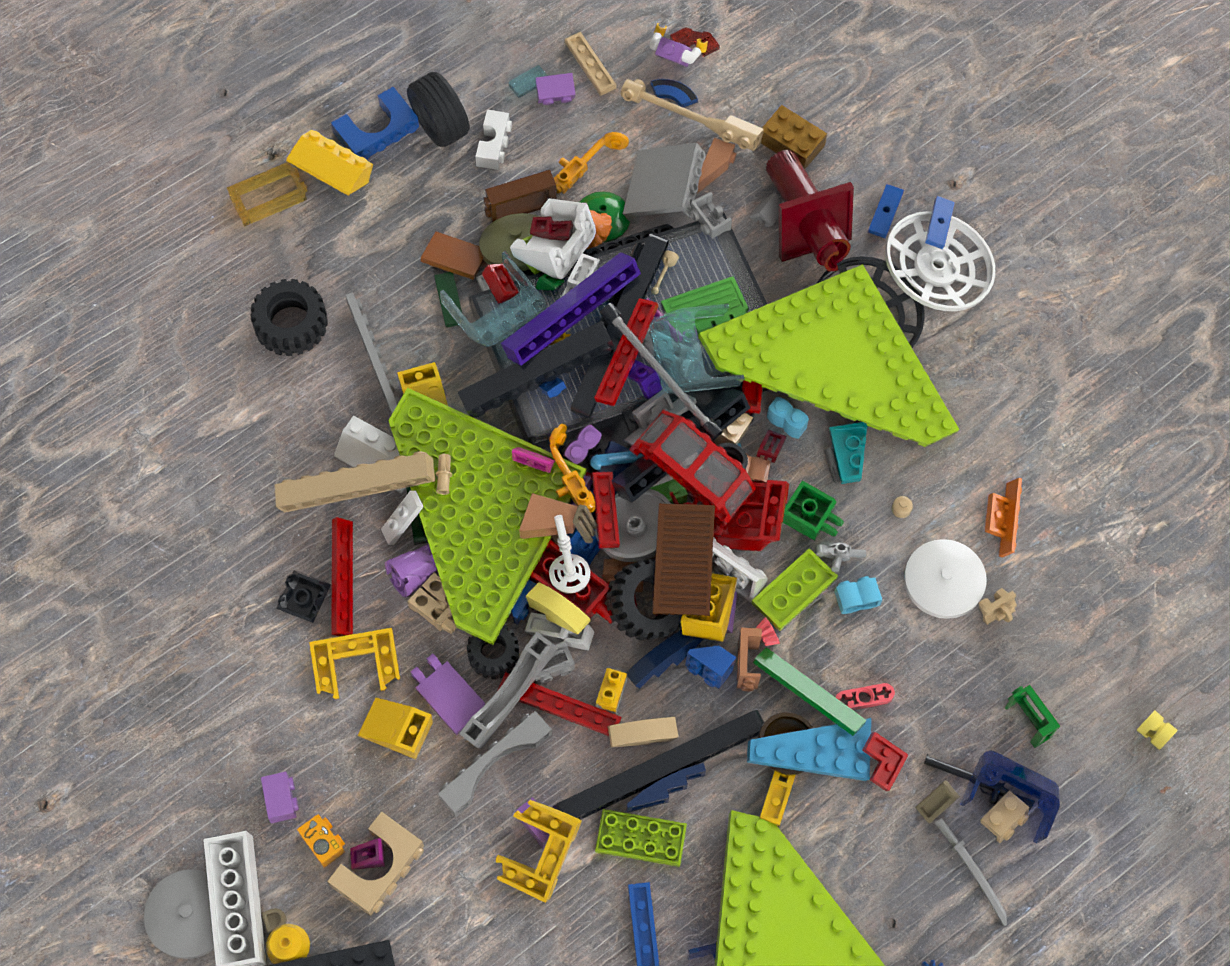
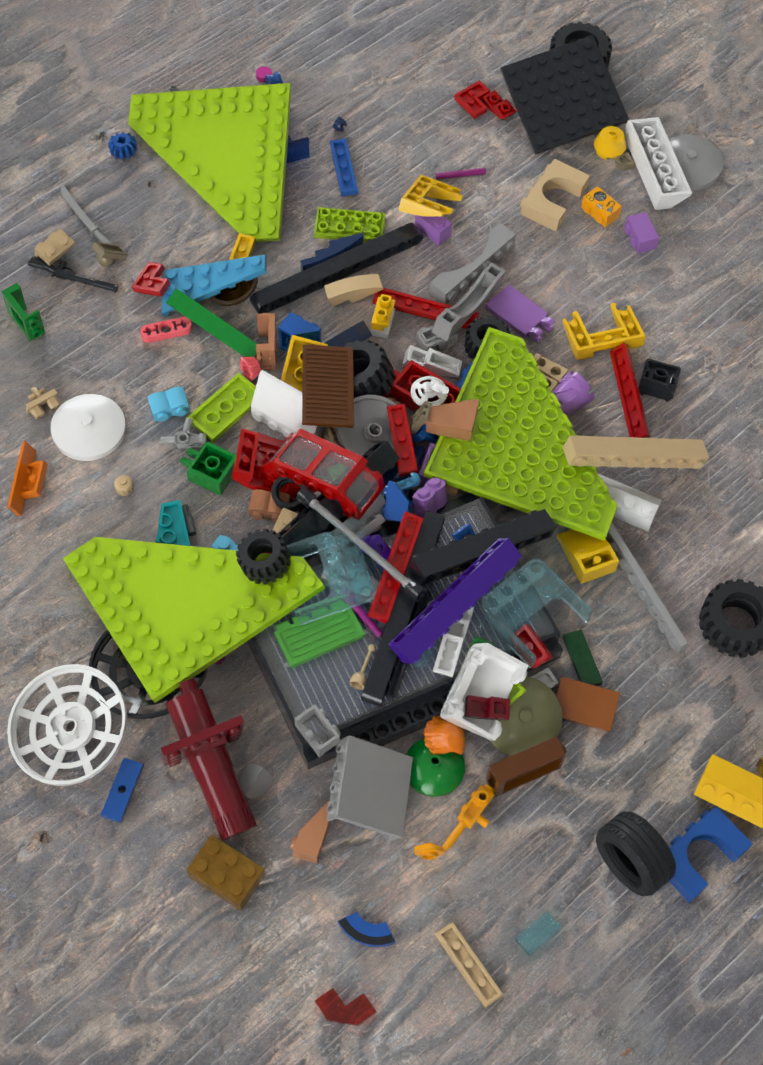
camera: 175 degrees right, 5 degrees down
(368, 855) = (562, 198): magenta slope -> none
(396, 727) = (558, 282): yellow slope -> none
(402, 517) = (584, 428): white plate -> none
(443, 474) = (555, 454): tan axle -> none
(491, 153) = (565, 863): white arch -> none
(494, 912) = (460, 173): none -> magenta bar
(532, 459) = (475, 472): dark pink slope -> none
(555, 88) = (506, 916): medium lavender brick -> none
(557, 608) = (436, 363): light yellow slope -> none
(572, 482) = (435, 454): light orange piece -> none
(616, 431) = (396, 503): none -> blue slope
(673, 50) = (371, 976): torso -> none
(730, 130) = (296, 866): tan bar -> none
(767, 454) = (241, 522): dark red tile -> none
(768, 350) = (257, 544): none -> black tyre
(939, 222) = (67, 749): tile -> none
(996, 767) = (44, 271): clear blue windscreen -> none

